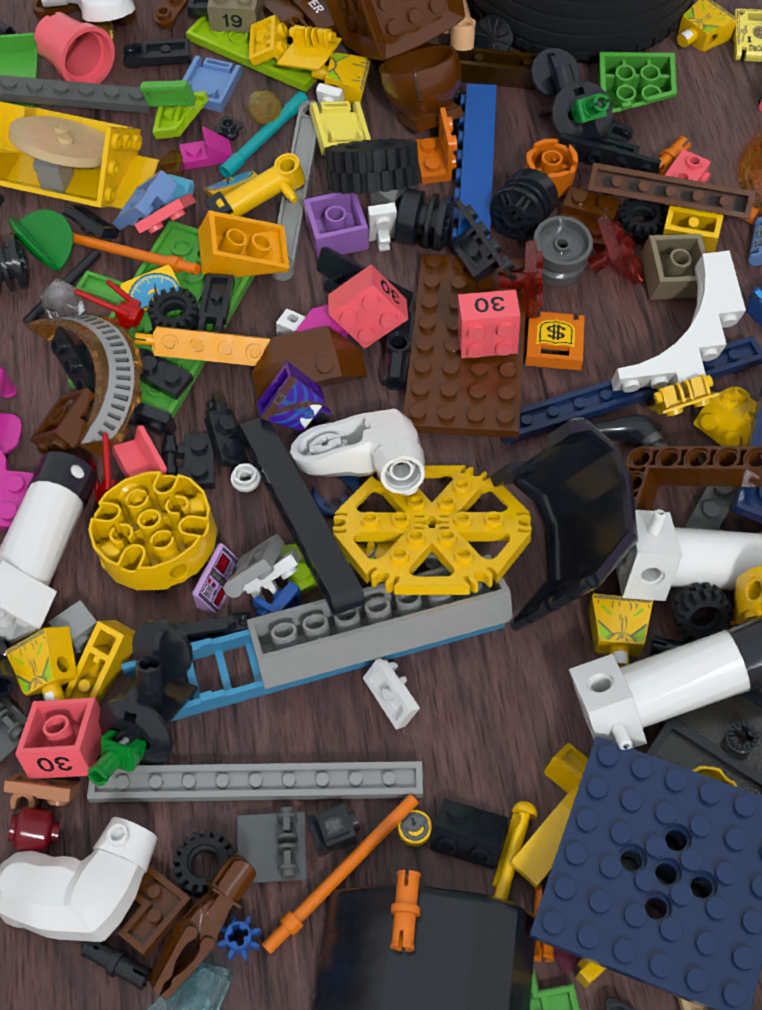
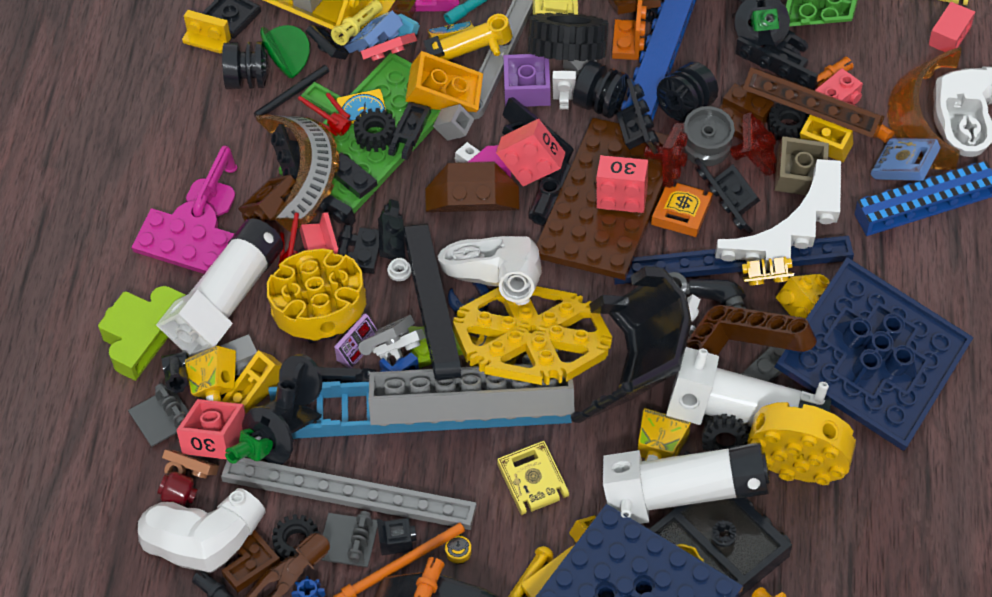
camera: 15 degrees right, 5 degrees down
(60, 300) = (286, 102): clear brick -> none
(133, 176) = (371, 10): none -> light yellow pin
(176, 262) = (386, 88): orange bar -> none
(204, 345) = (392, 159): light orange plate -> none
(264, 288) = (453, 122): none -> light grey brick
(293, 400) = (451, 216): torso -> none
(391, 692) = (467, 449): white plate -> none
(468, 833) = (497, 561): black bracket -> none
(484, 715) = (534, 480): none -> light yellow container
(554, 161) = (725, 62): orange brick -> none
(607, 307) = (734, 190): none -> black bracket

